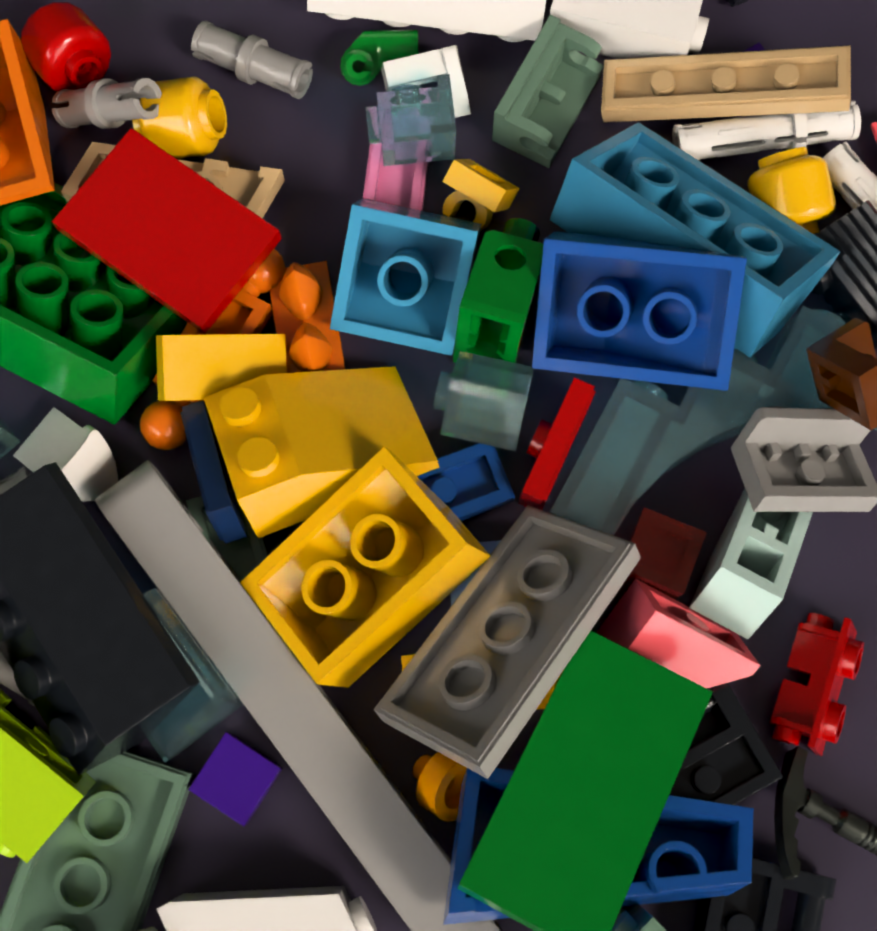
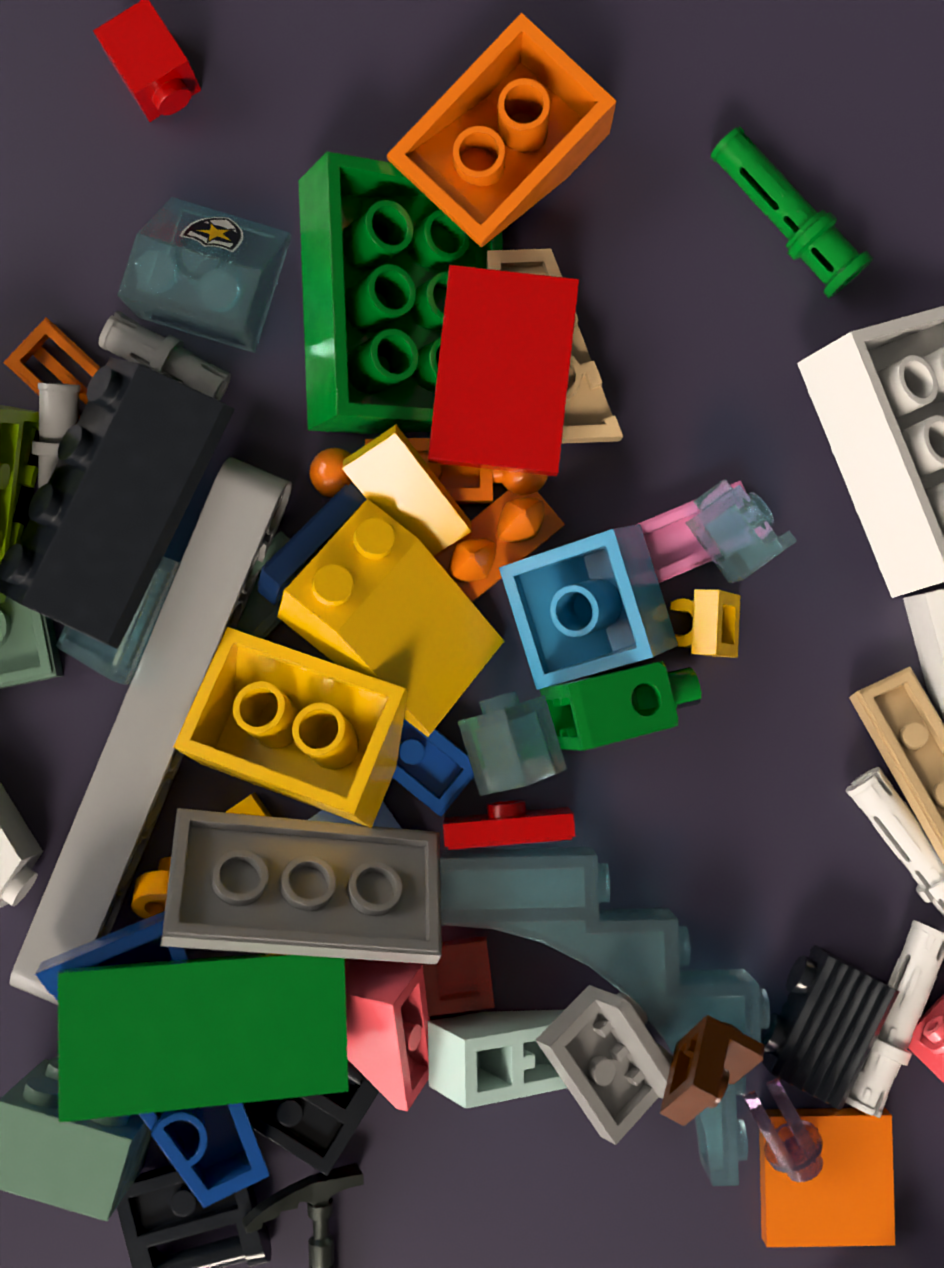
camera: 55 degrees right, 10 degrees up
(65, 46) = (631, 163): red head -> none
(76, 450) = (262, 405): white tile -> none
(106, 103) = (595, 239): light grey pin -> none
(188, 118) = (623, 310): yellow head -> none
(235, 778) = (74, 714): dark purple tile -> none
(251, 59) = (721, 339): light grey pin -> none
(372, 48) = (795, 446): green arm -> none
(424, 68) = (802, 509): white tile -> none
(547, 92) = (845, 633): sand green hinge -> none
(637, 310) = (663, 839): blue slope -> none
(661, 195) = (772, 846): dark azure slope -> none
(795, 186) = (870, 913): yellow head -> none
(815, 707) = (401, 1169): red hinge -> none

